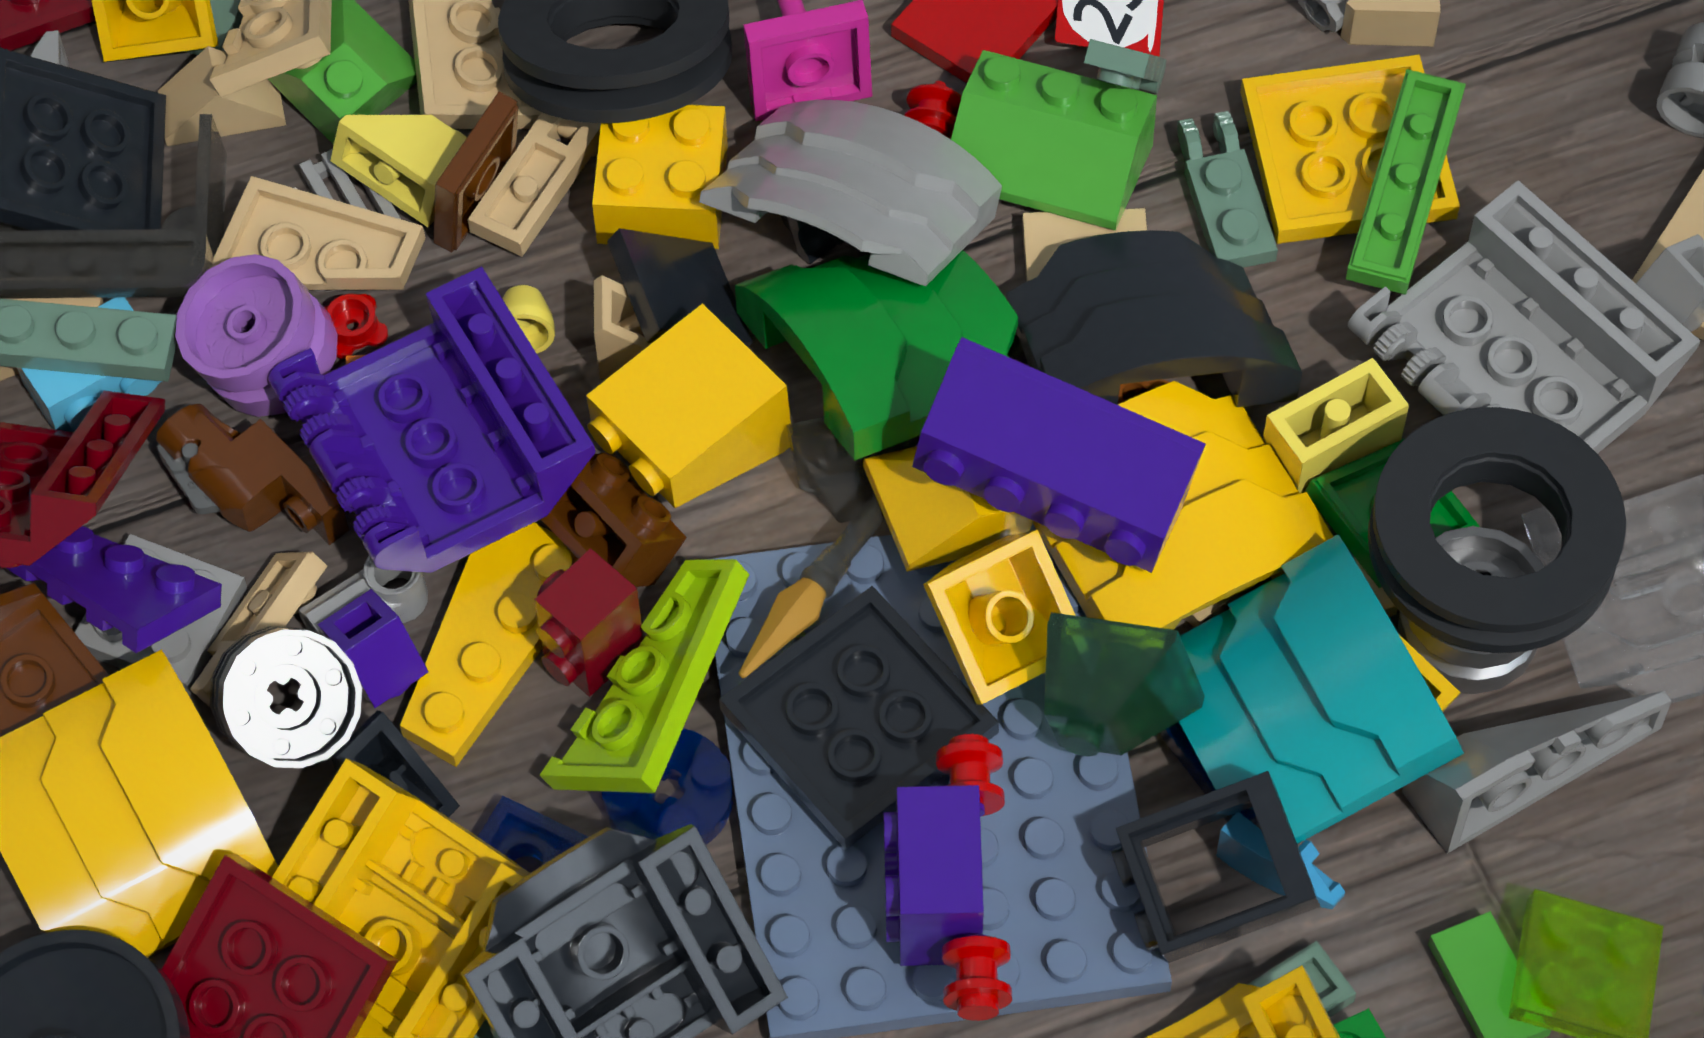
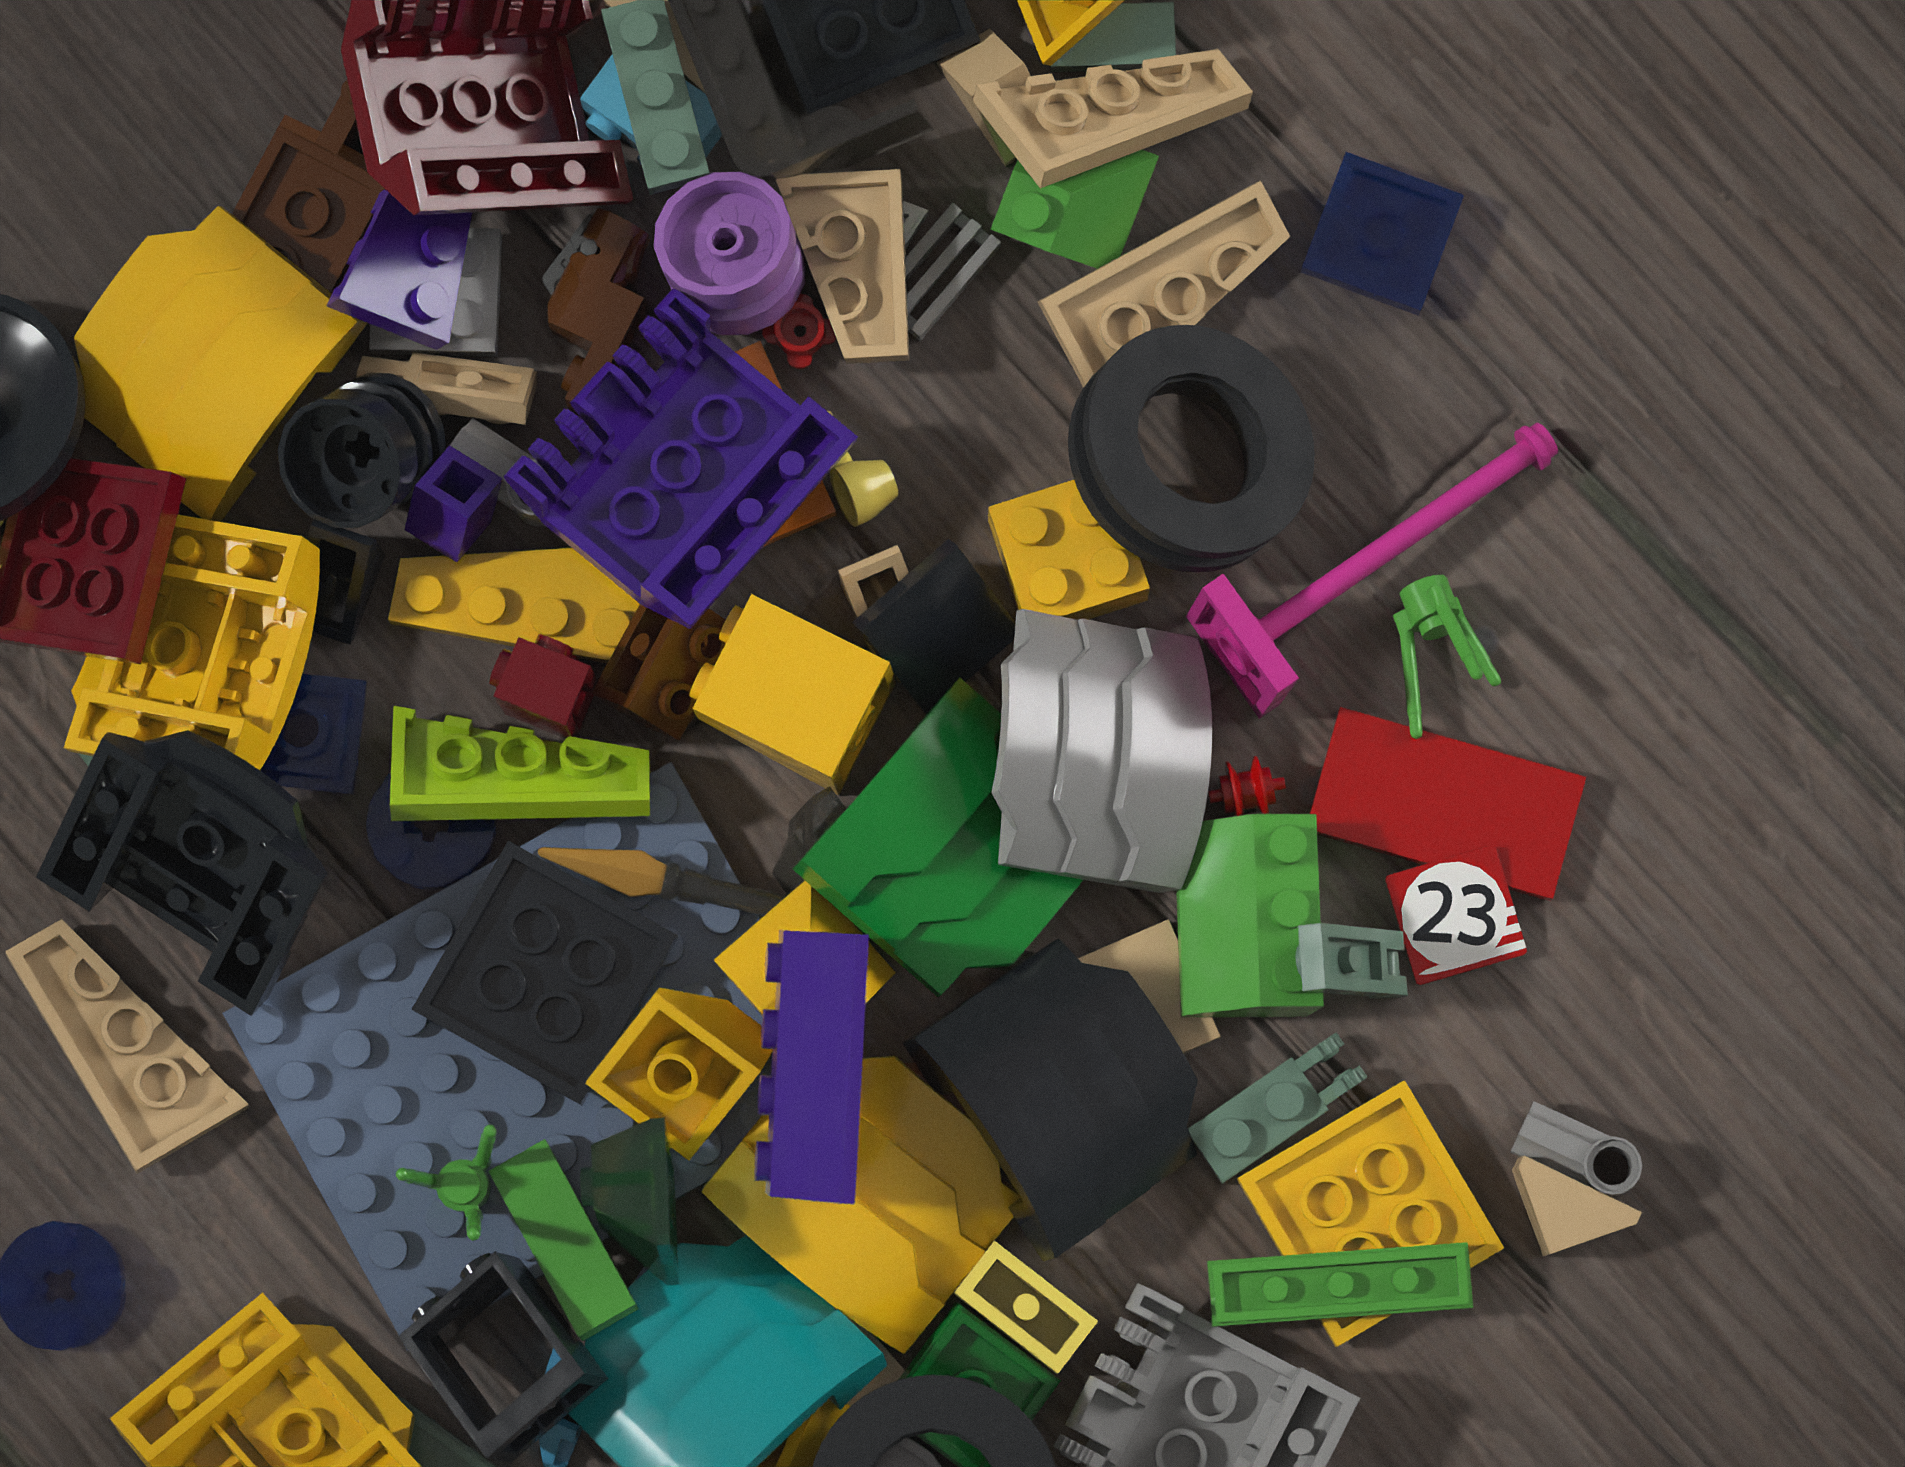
camera: 70 degrees right, 20 degrees up
(397, 157) = (985, 309): light yellow slope -> none
(474, 171) = (986, 380): reddish brown tile -> none
(534, 182) = (1006, 432): tan plate -> none
(938, 879) = (391, 1113): dark purple brick -> none
(1034, 852) = (461, 1183): none -> bright green plant
(1121, 782) = (563, 1240): none -> bright green tile

